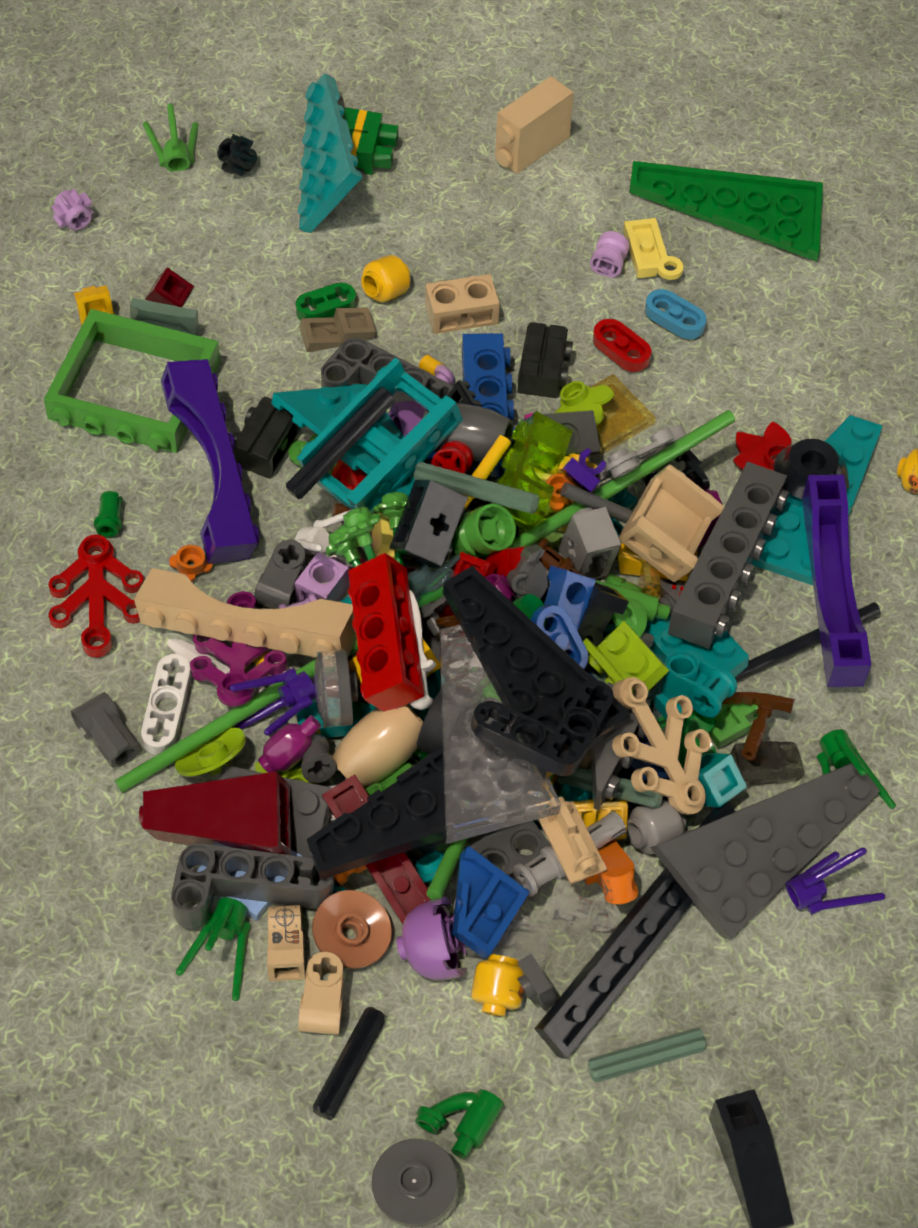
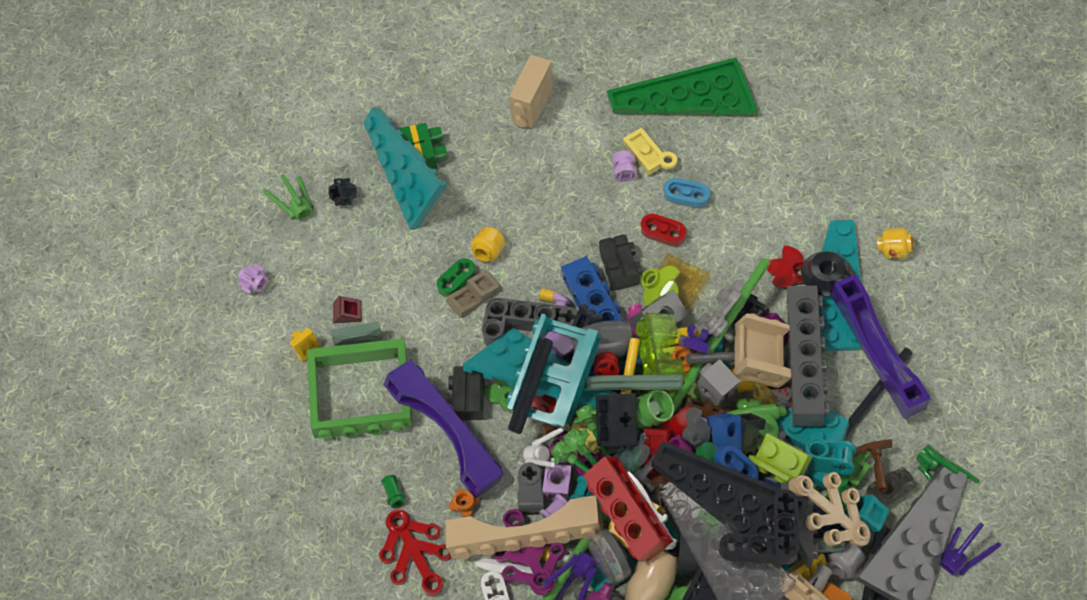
camera: 15 degrees left, 5 degrees up
(462, 303) = (549, 246): tan brick -> none

